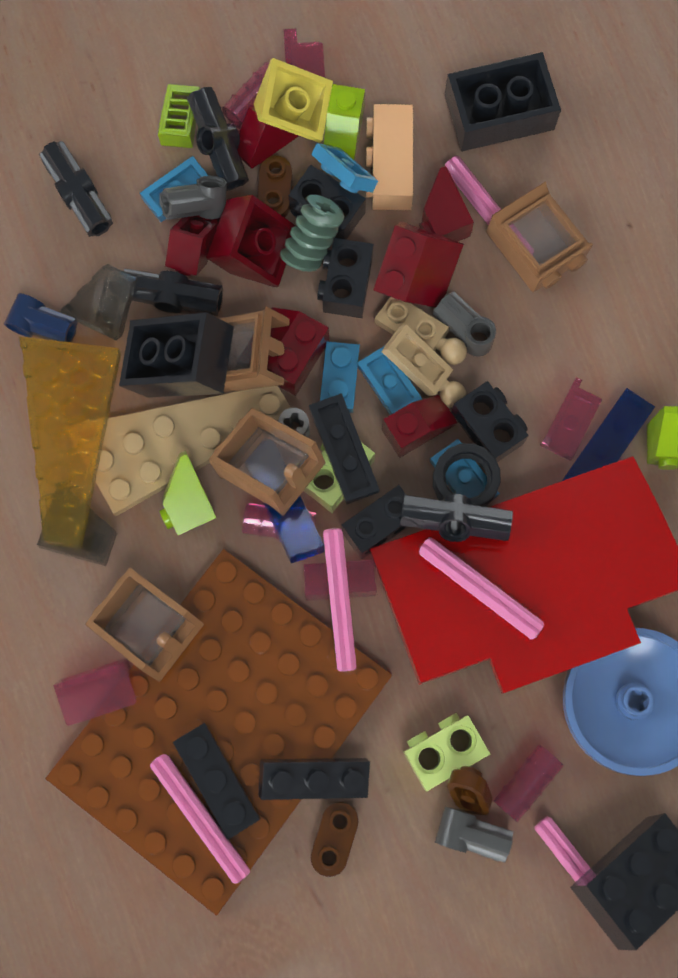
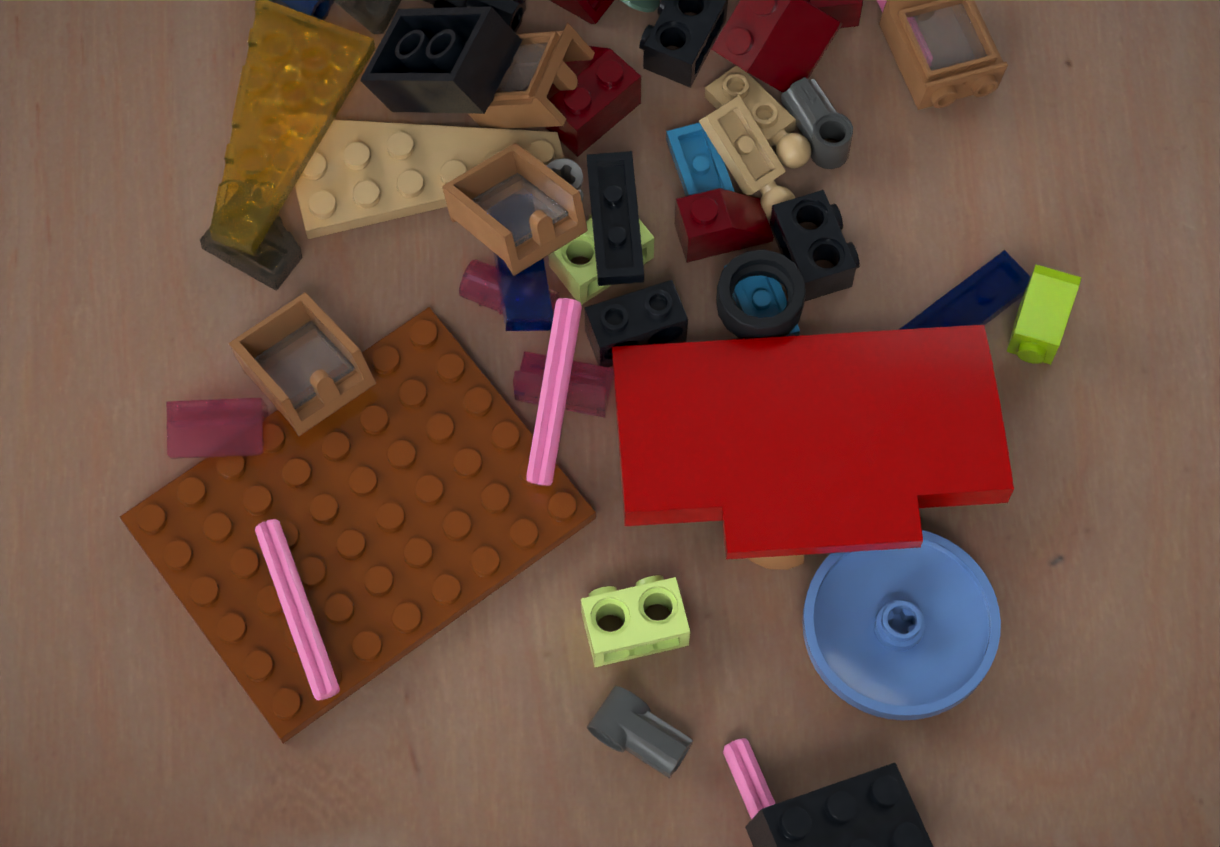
camera: 15 degrees right, 10 degrees down
(185, 499) = (399, 231): lime slope -> none
(216, 780) = (332, 572): black plate -> none
(313, 778) = (456, 603): black plate -> none
(334, 839) = (461, 690): reddish brown plate -> none
(340, 372) = (646, 138): dark azure plate -> none
(456, 518) = (752, 337): black piece -> none
(470, 790) = (650, 669): reddish brown plate -> none
(481, 588) = (736, 420): bright pink axle -> none
(528, 783) = (730, 688): clear pink axle -> none
(571, 421) = (918, 269): clear pink panel -> none

